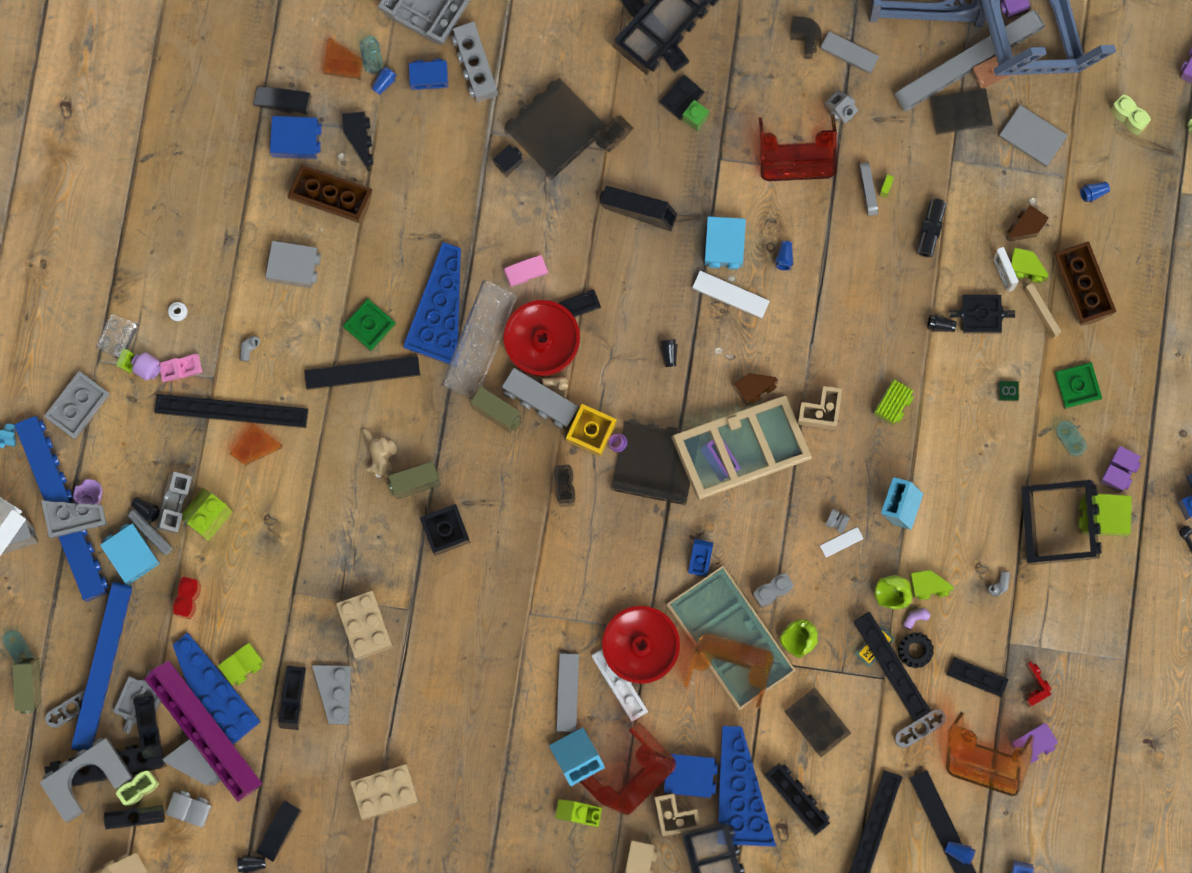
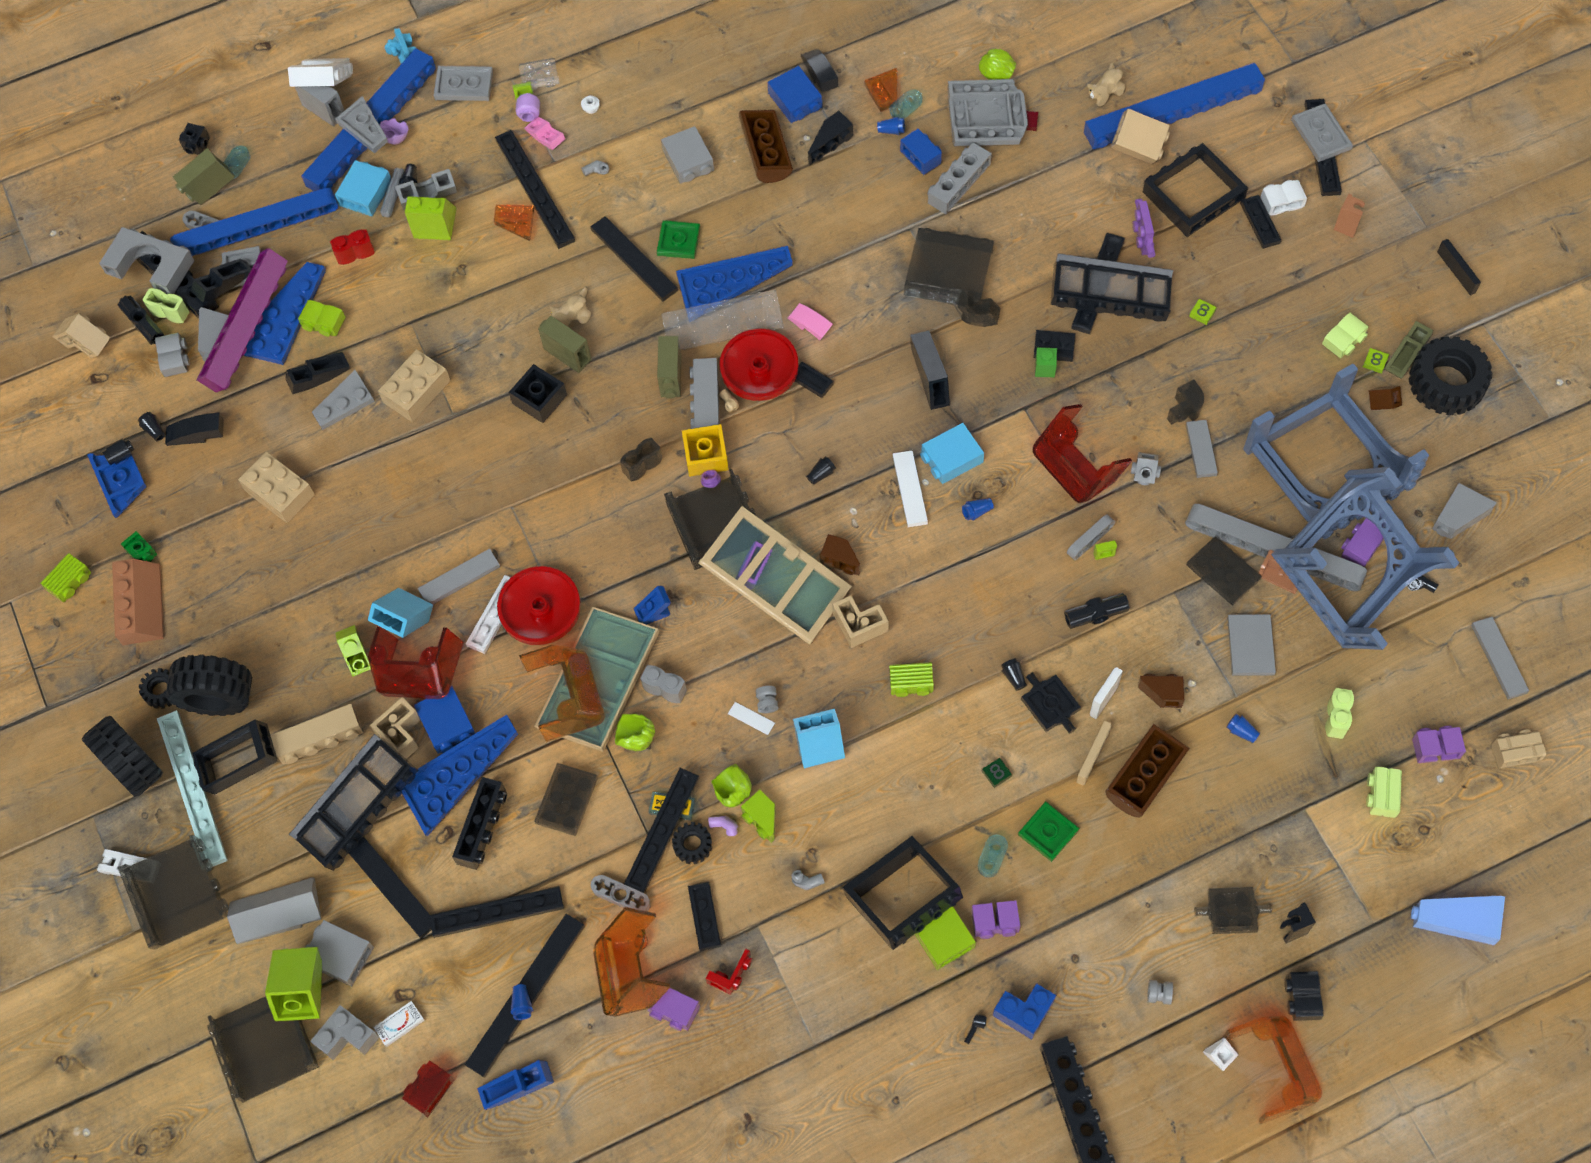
camera: 55 degrees right, 15 degrees down
(508, 160) = (895, 250): black brick -> none
(1028, 265) = (1125, 711): lime slope -> none

